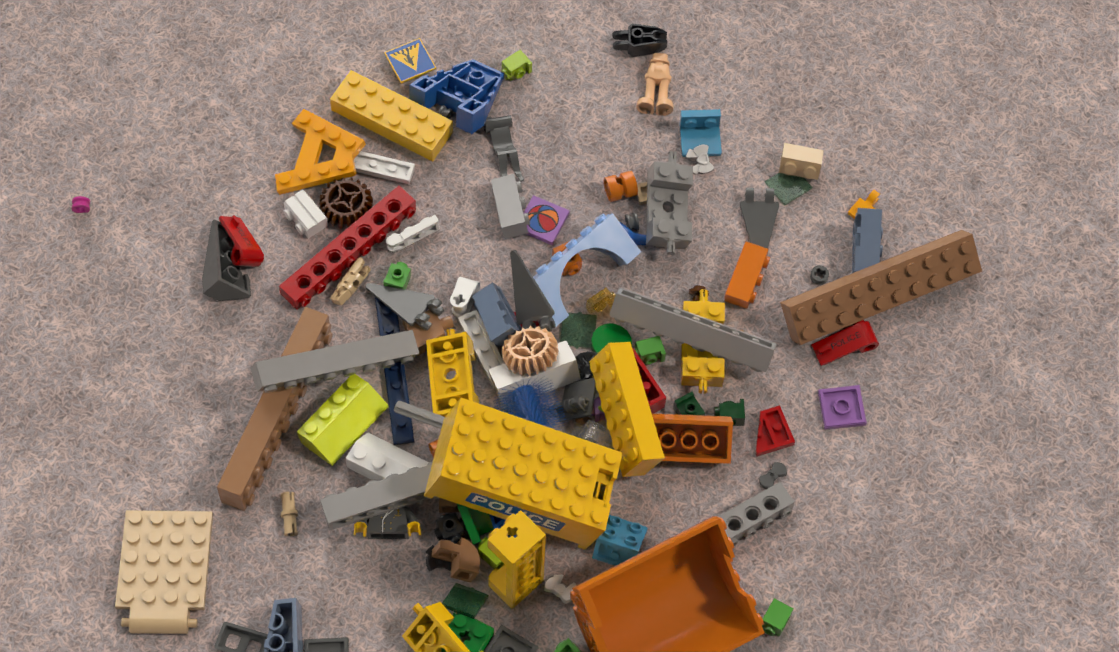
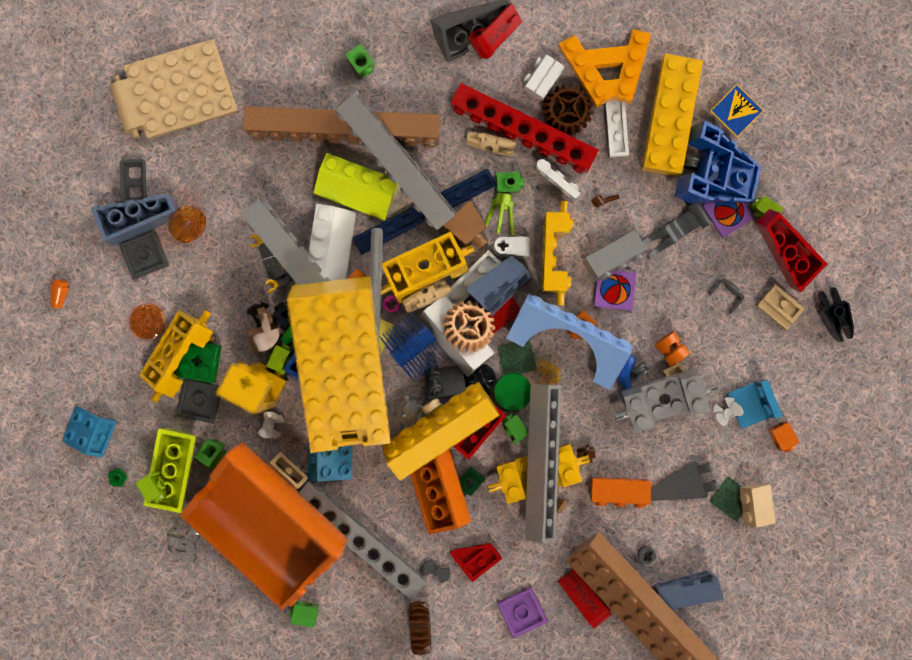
camera: 80 degrees right, 25 degrees up
(209, 369) = (357, 54): none -> bright green brick
(289, 514) = (257, 175): tan pin -> none
(313, 597) = (189, 233): none -> clear orange tile
(408, 304) = (483, 201): flag -> none
(417, 287) = (502, 203): none -> lime plant
(450, 203) = (599, 201): none -> reddish brown hand
(462, 253) = (555, 225): none -> yellow brick
(465, 600) = (229, 349): clear green piece -> none
(483, 383) = (426, 295): none -> tan hinge
(509, 100) = (728, 216): none -> tile
(528, 297) = (517, 308): dark grey flag -> none
(563, 55) = (790, 250): none -> red wedge
(582, 119) = (732, 288): none -> dark grey piece
(598, 412) = (430, 406): none -> tan tile
(614, 84) = (780, 307): none -> tan plate
(657, 75) = (804, 342): light nougat piece -> none
(733, 410) = (480, 517): dark green brick -> none
(741, 119) = (783, 436): none -> orange brick
(826, 502) = (420, 628): none -> reddish brown gear
(868, 203) = (729, 575): light orange plate -> none

